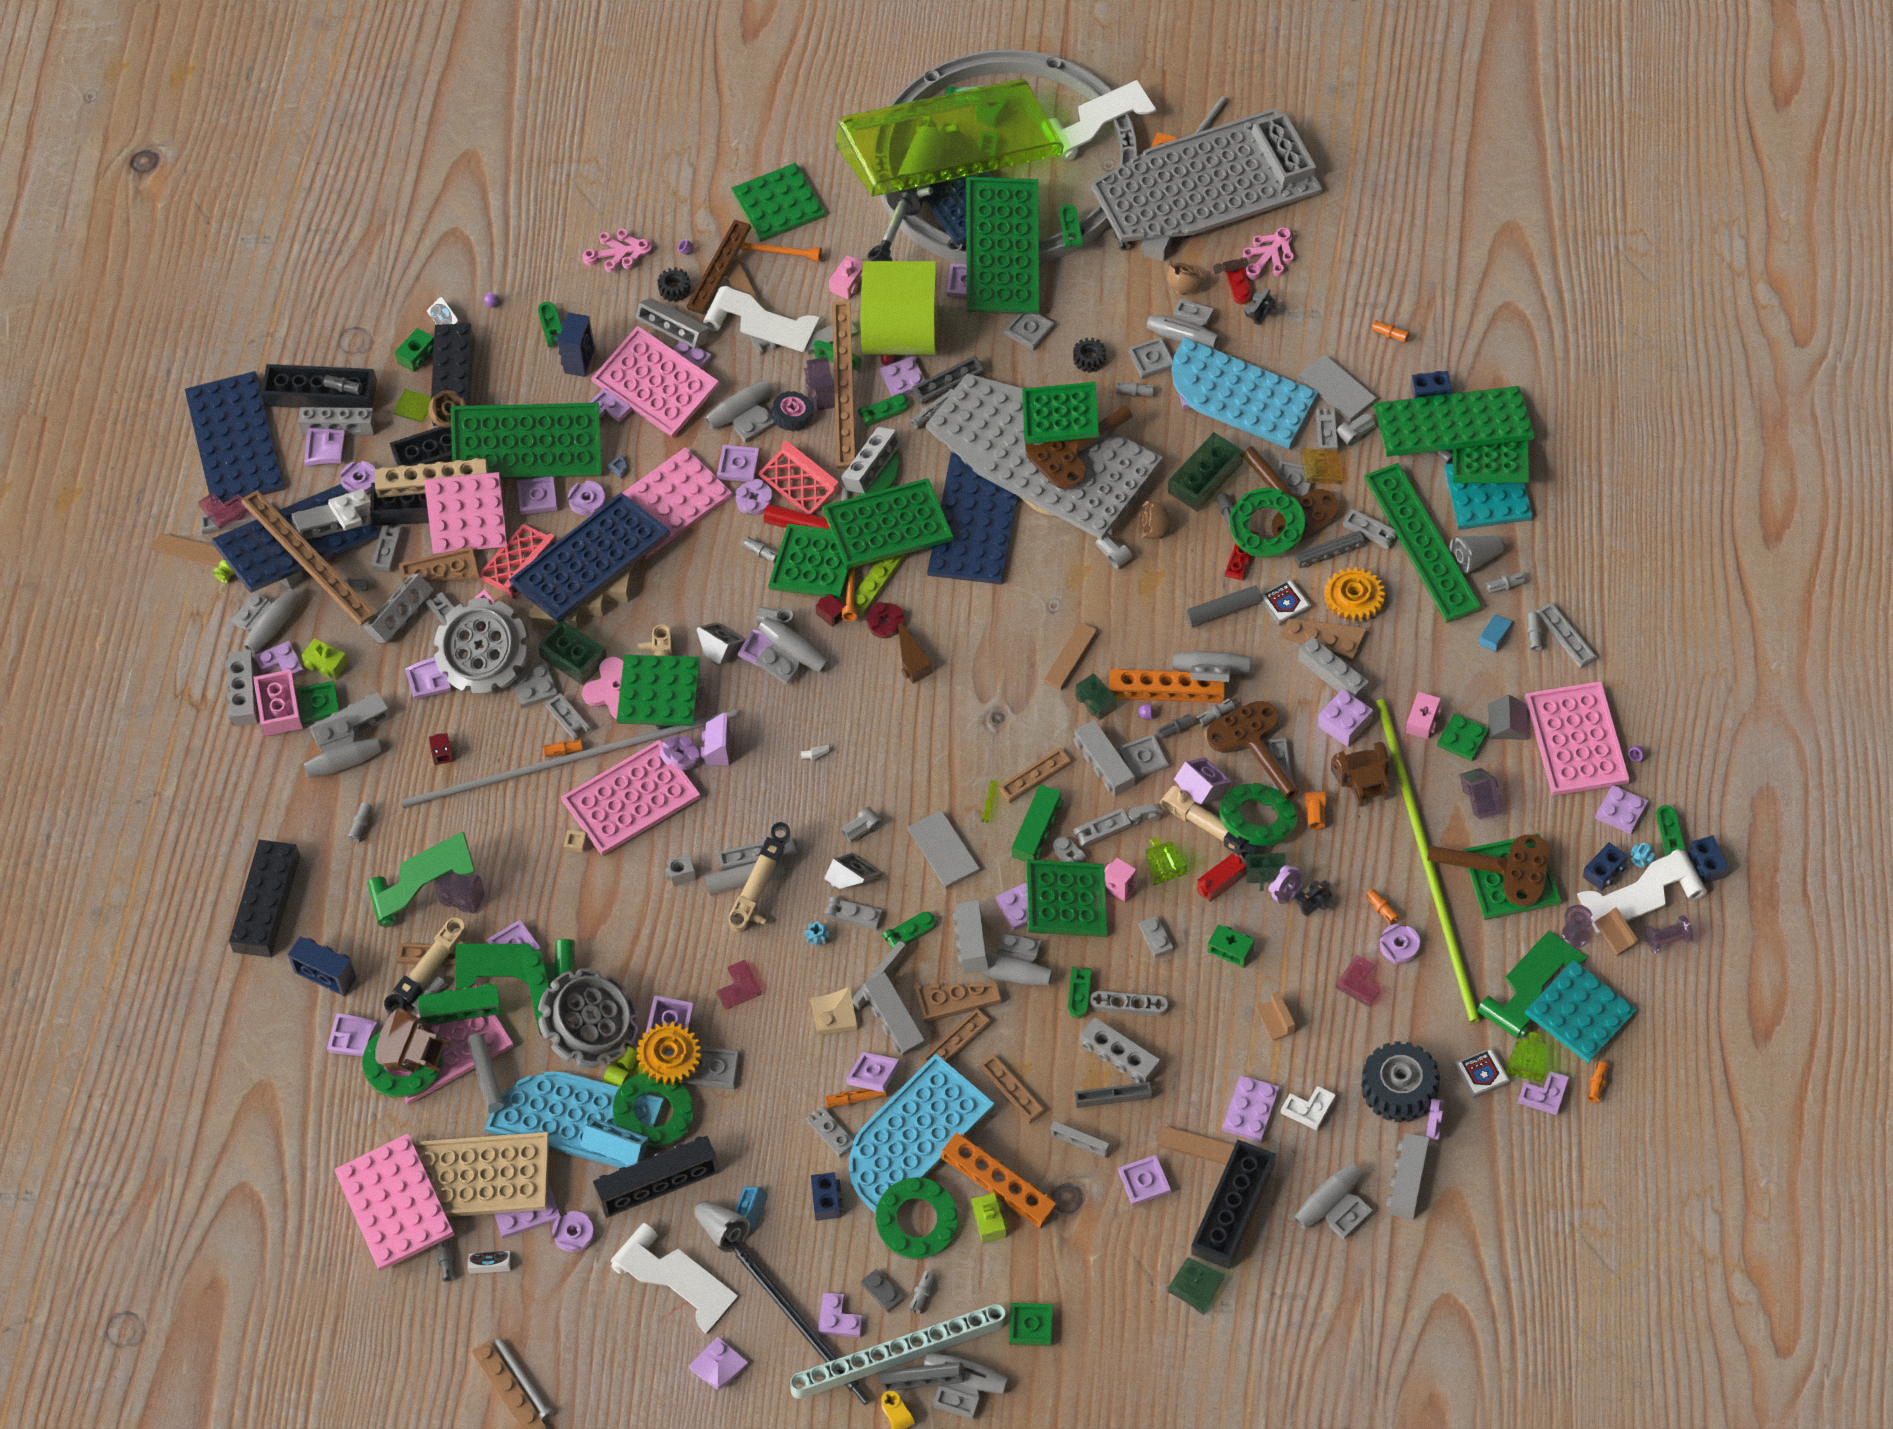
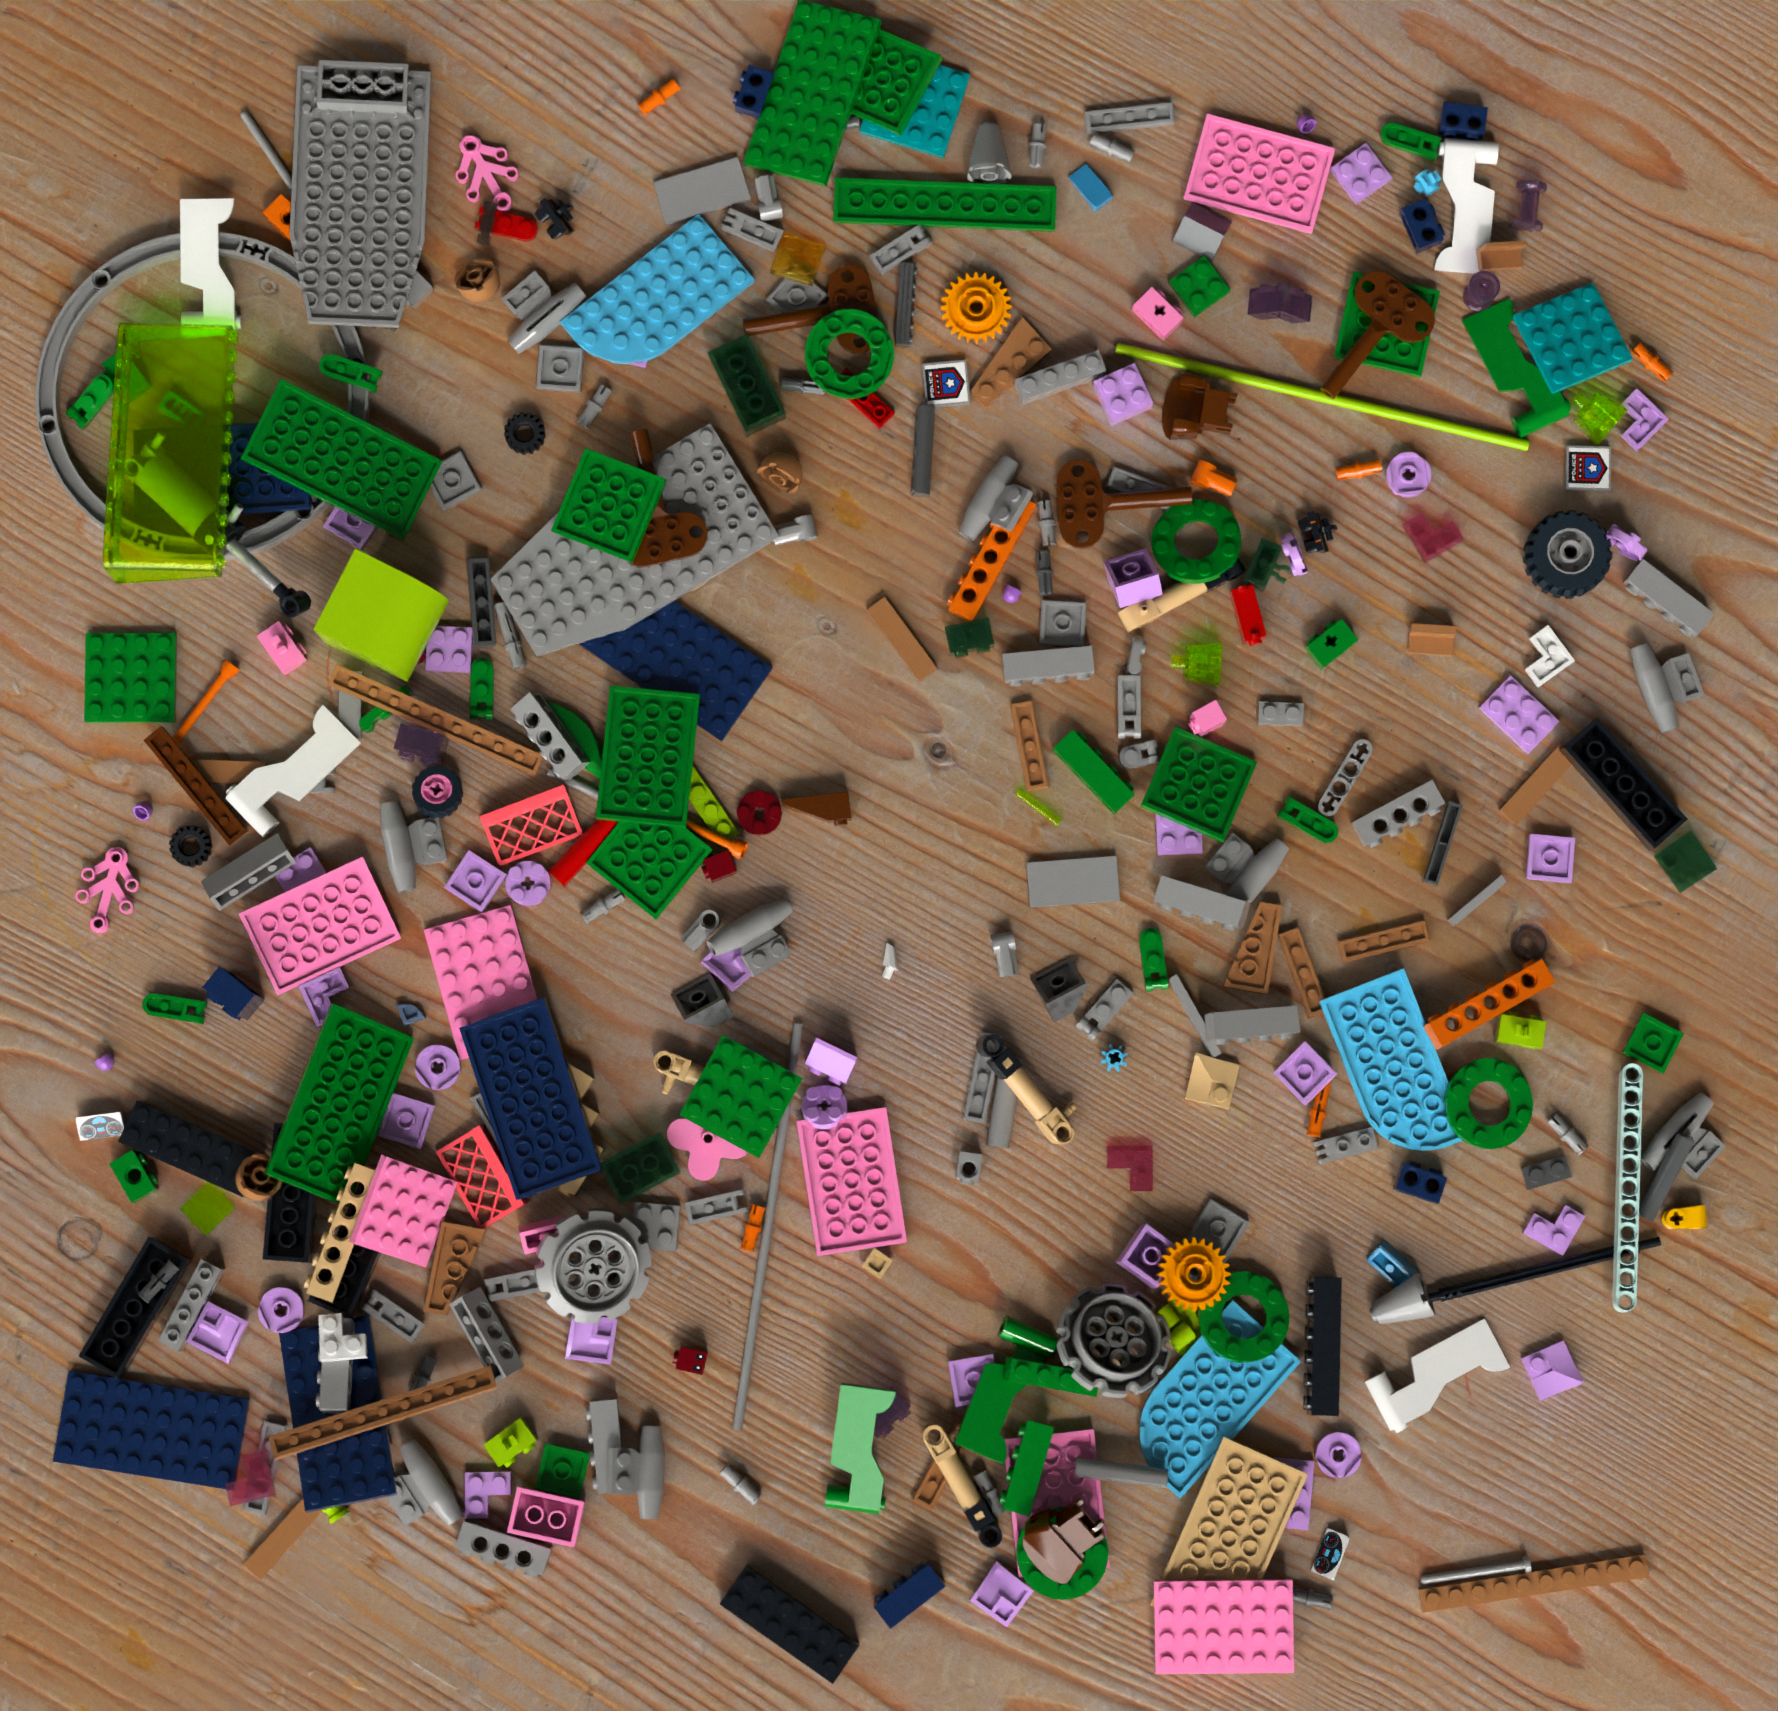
camera: 70 degrees left, 25 degrees up
(614, 1142) = (1269, 1372): medium azure brick -> none

